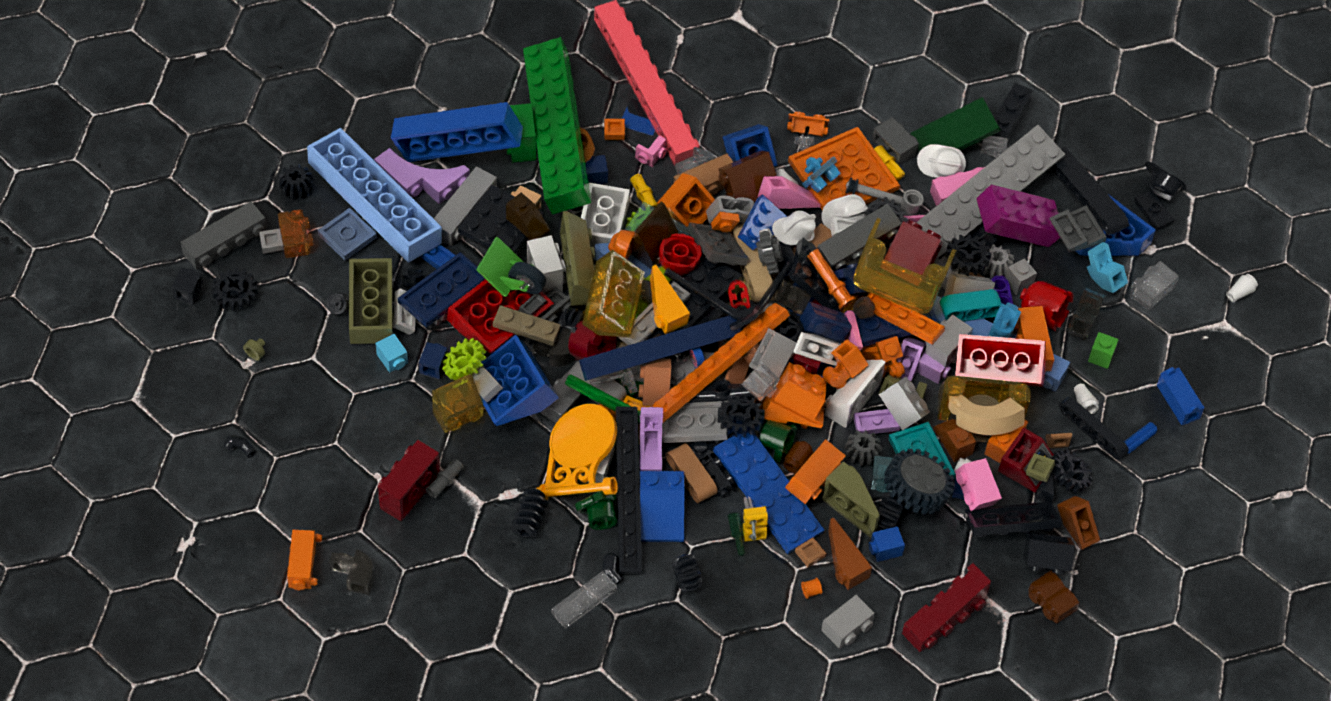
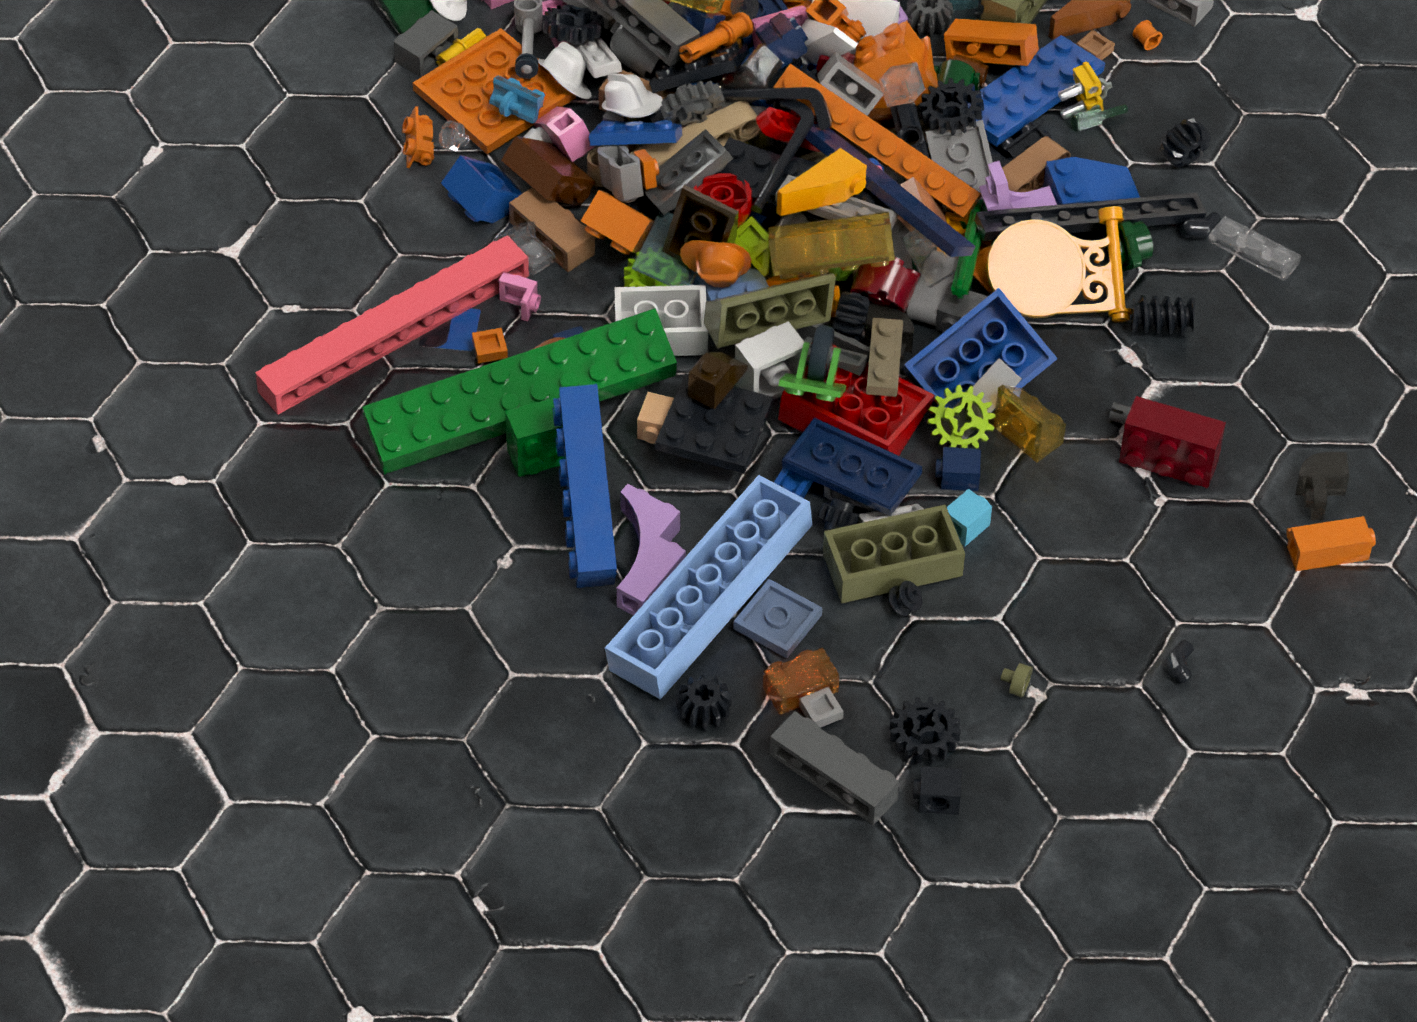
camera: 100 degrees left, 5 degrees down
(462, 203) = (686, 487): light grey brick -> none
(644, 192) = (592, 295): yellow pin -> none

